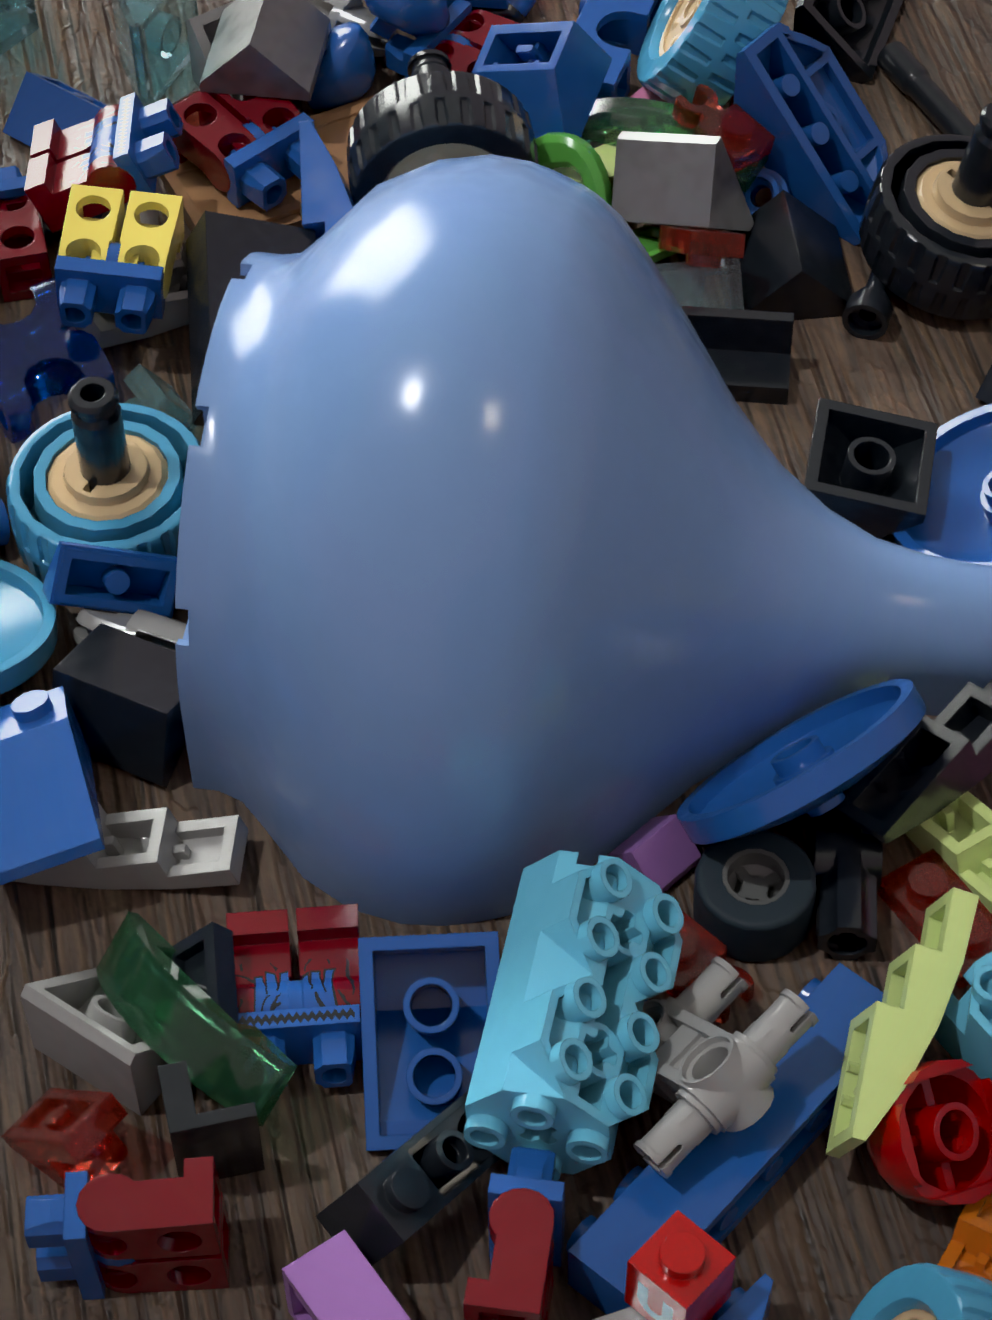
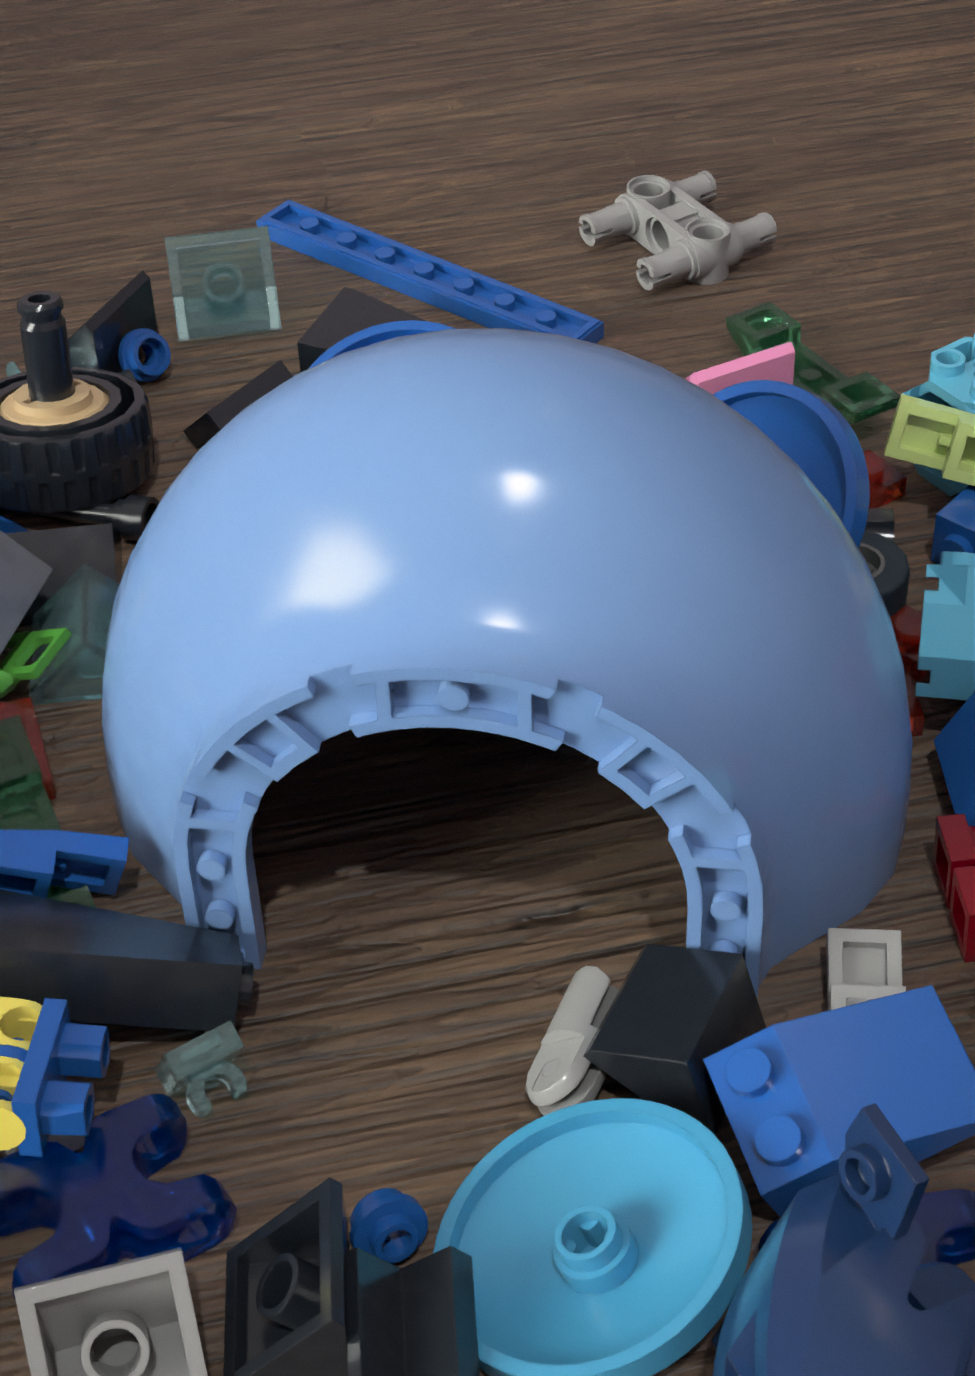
camera: 90 degrees left, 10 degrees down
(98, 478) = (372, 1078): wheel -> none
(111, 579) = (517, 1062): blue slope -> none
(701, 245) = (78, 572): clear red plate -> none

